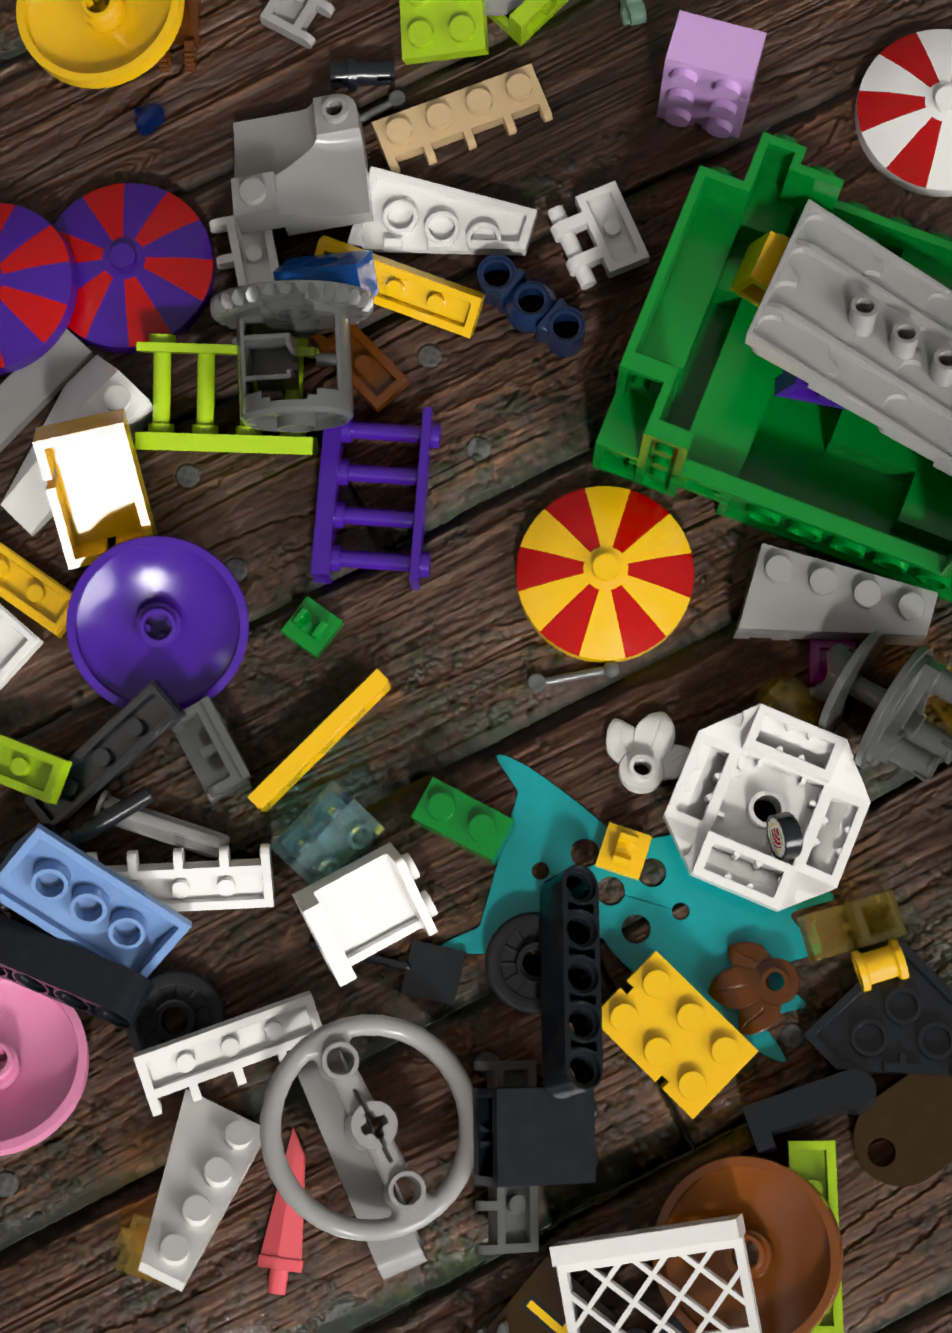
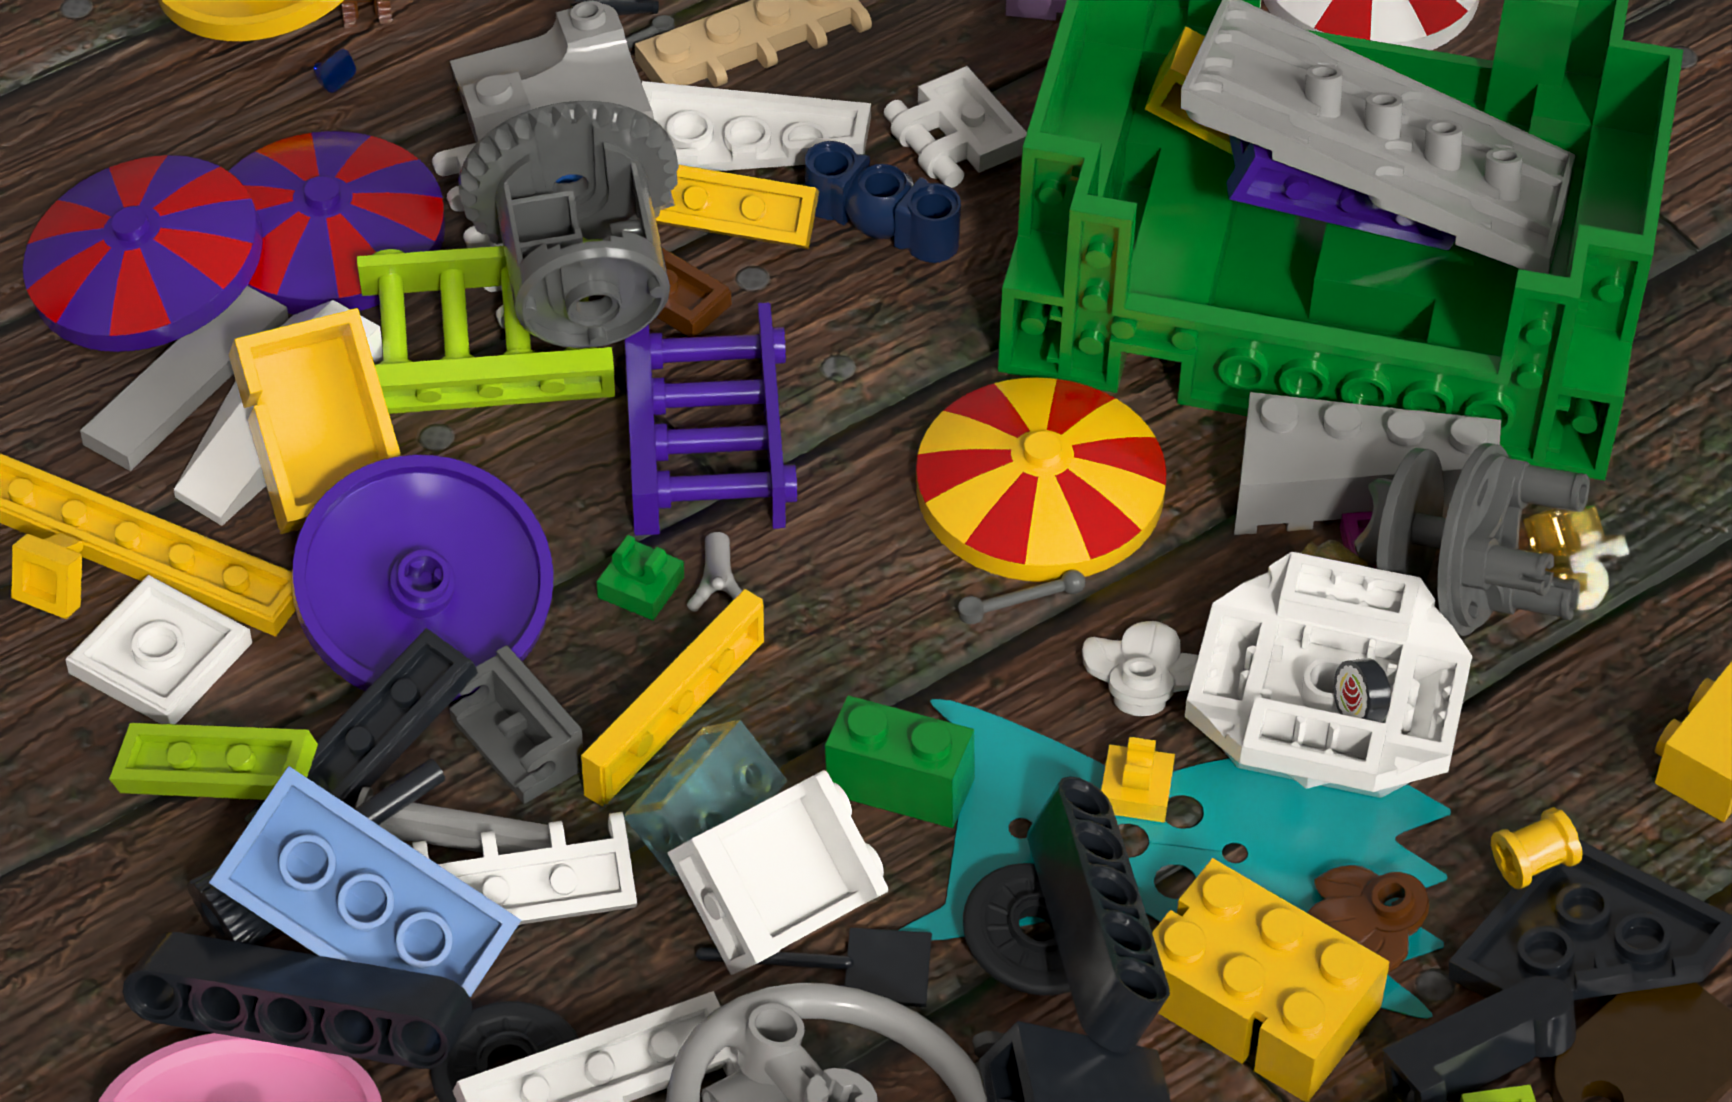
camera: 15 degrees left, 30 degrees down
(365, 631) = (717, 571): none -> light grey bar
(851, 925) = (1460, 825): clear yellow brick -> none

